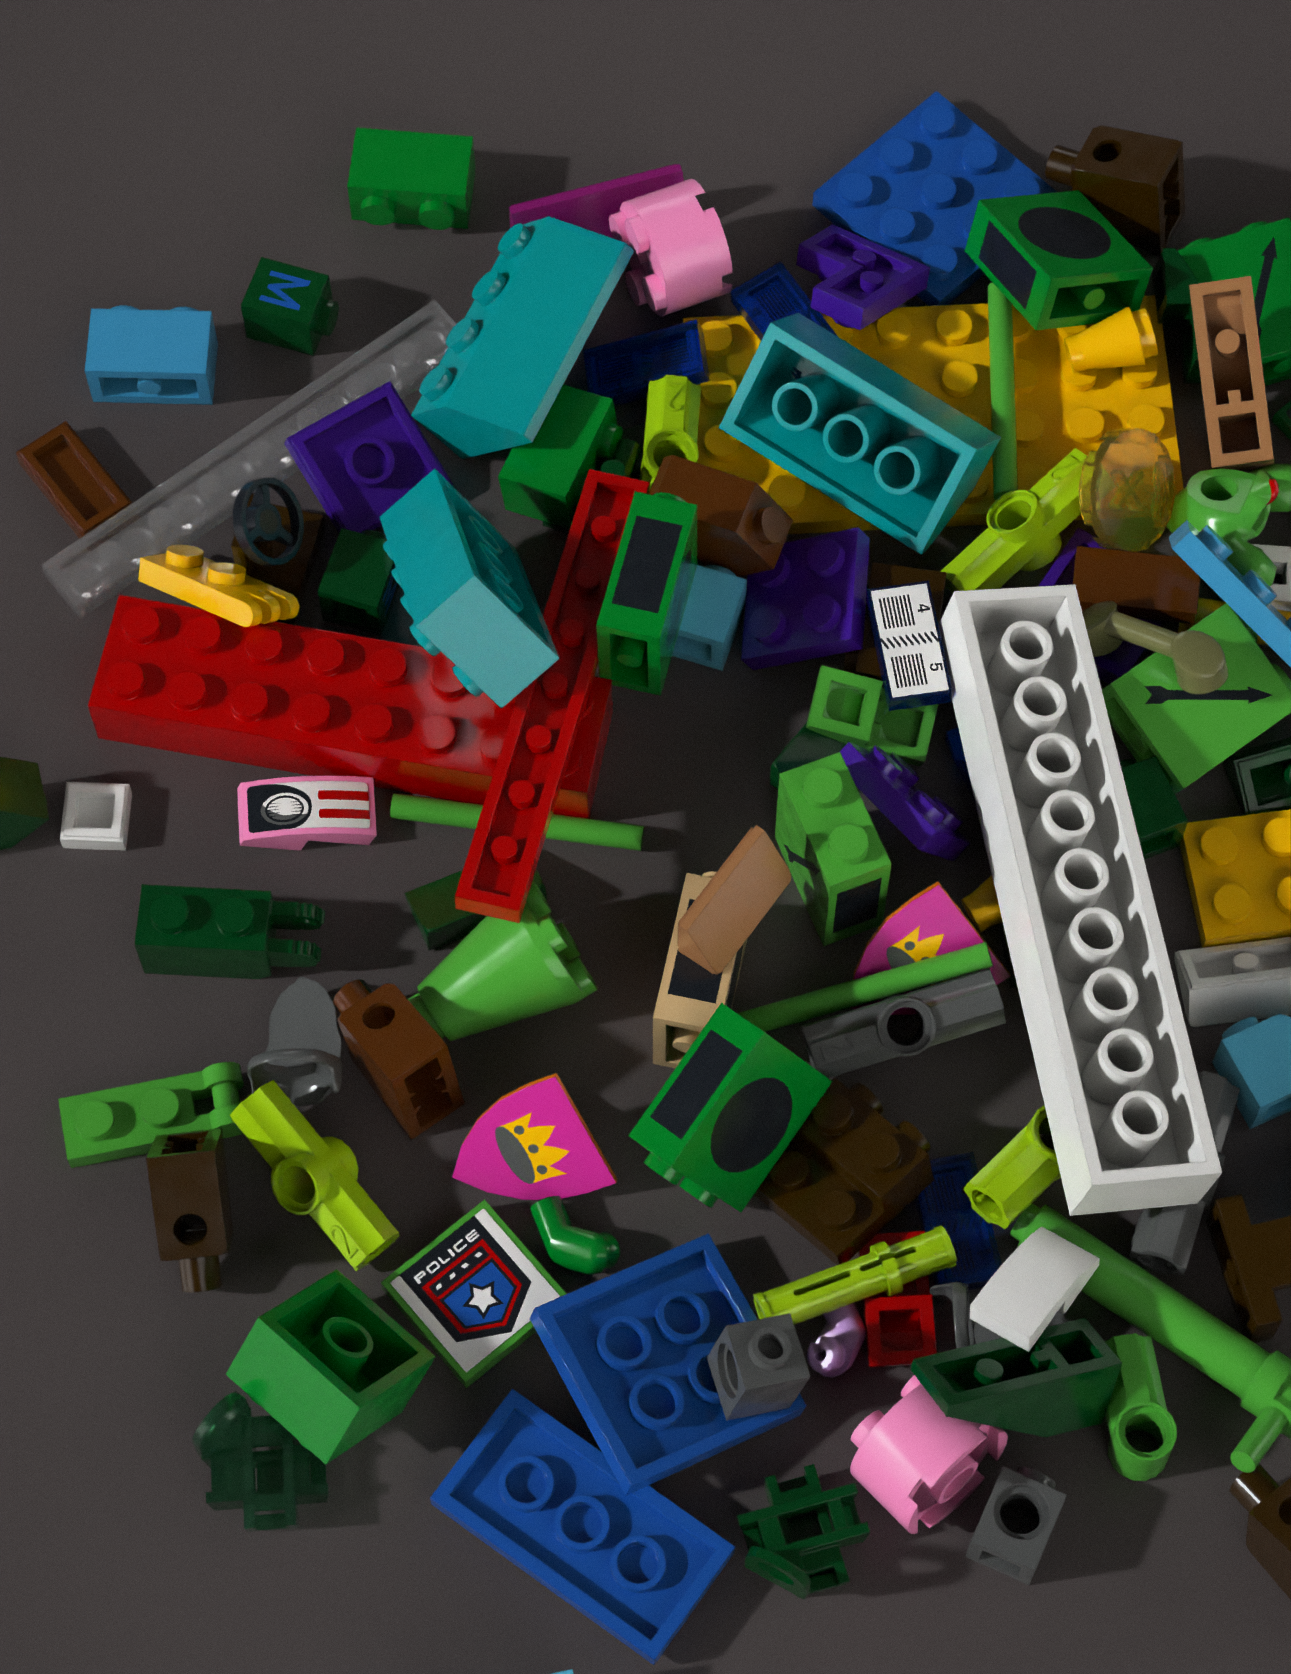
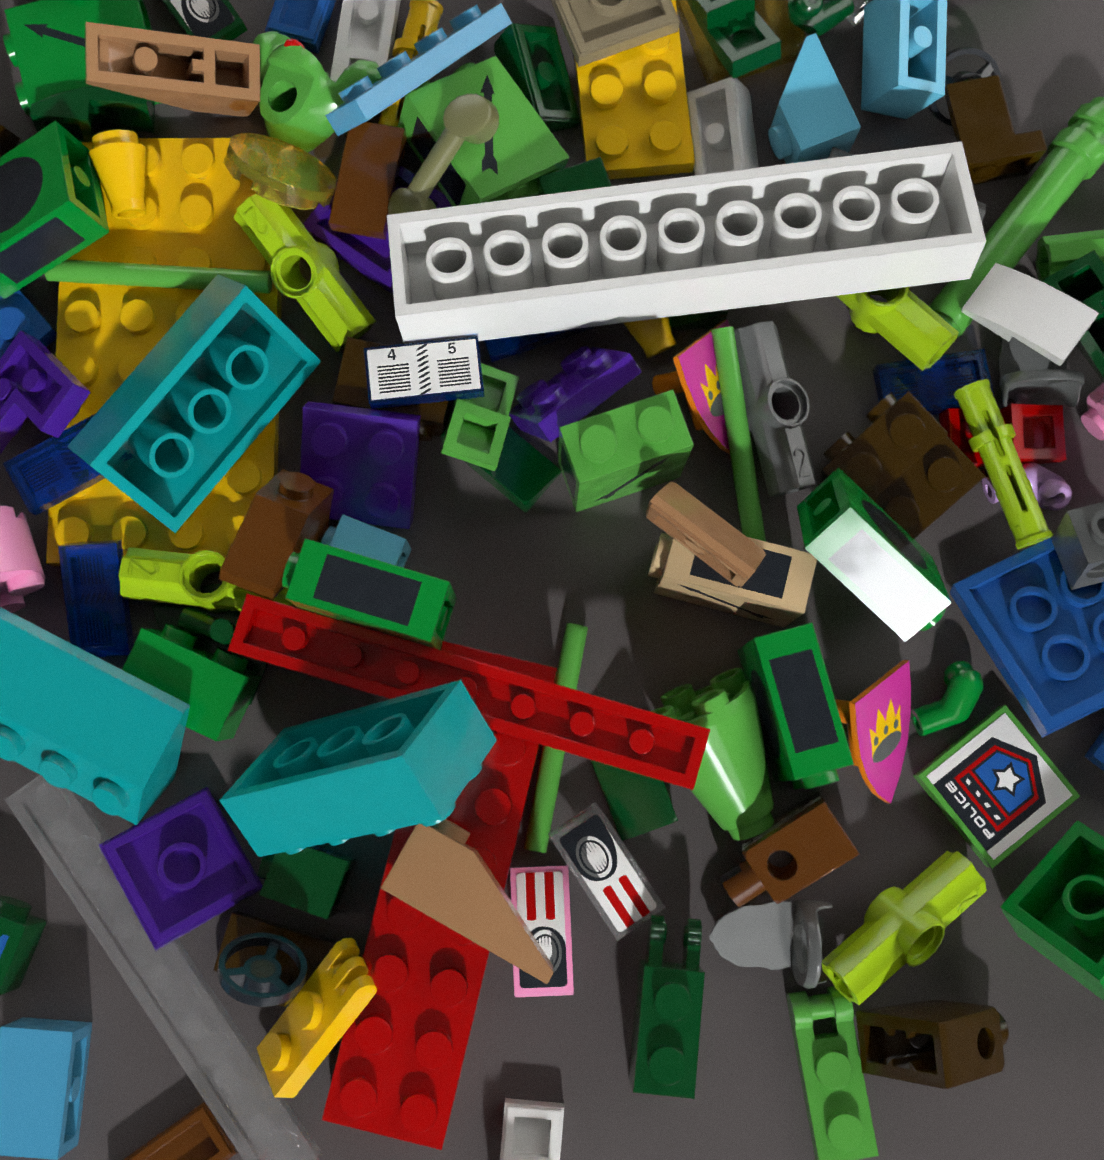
camera: 90 degrees left, 15 degrees up
(343, 698) = (458, 889): none -> medium nougat slope
(371, 871) = (606, 871): none -> slope
(574, 1029) = (796, 707): none -> brick

